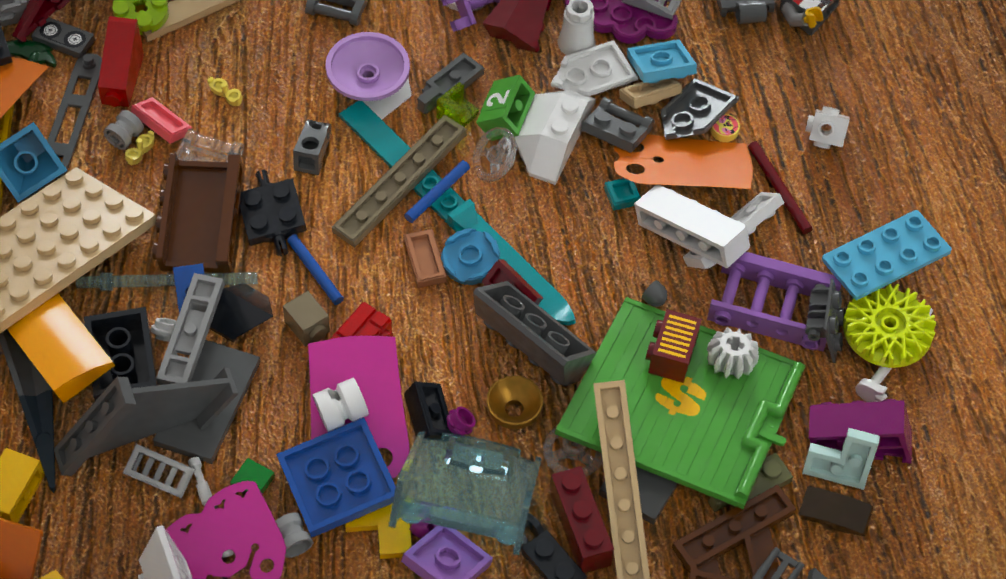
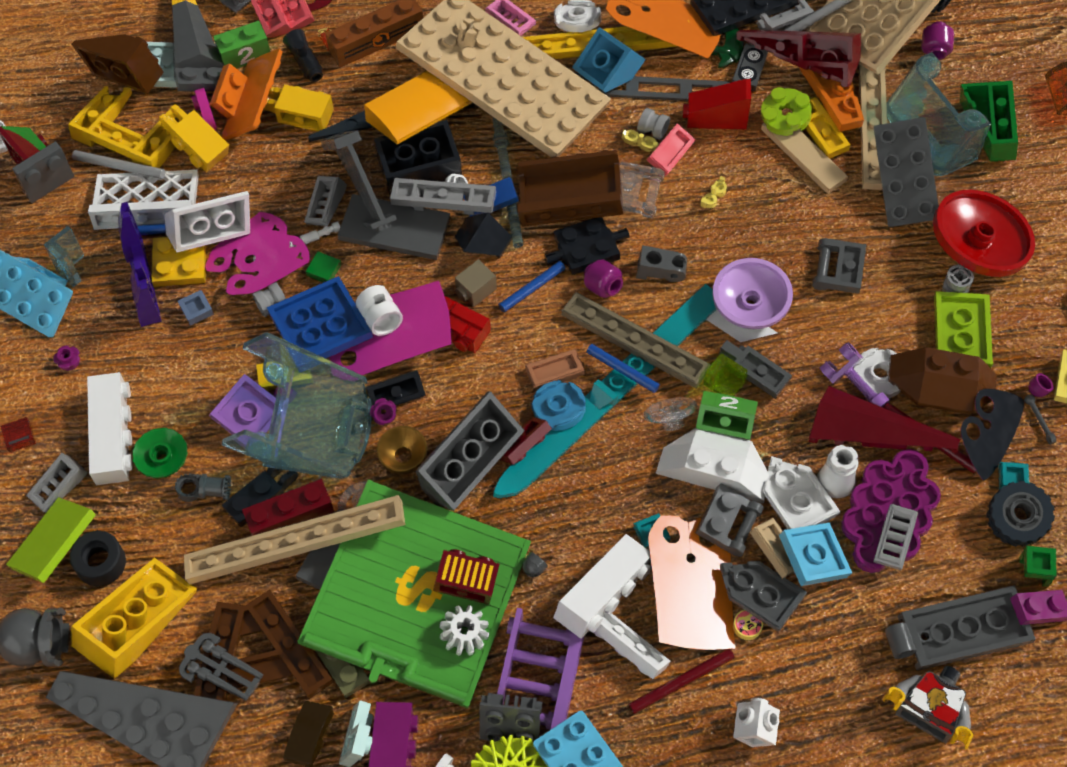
camera: 90 degrees right, 5 degrees up
(322, 197) = (603, 278): none -> magenta head

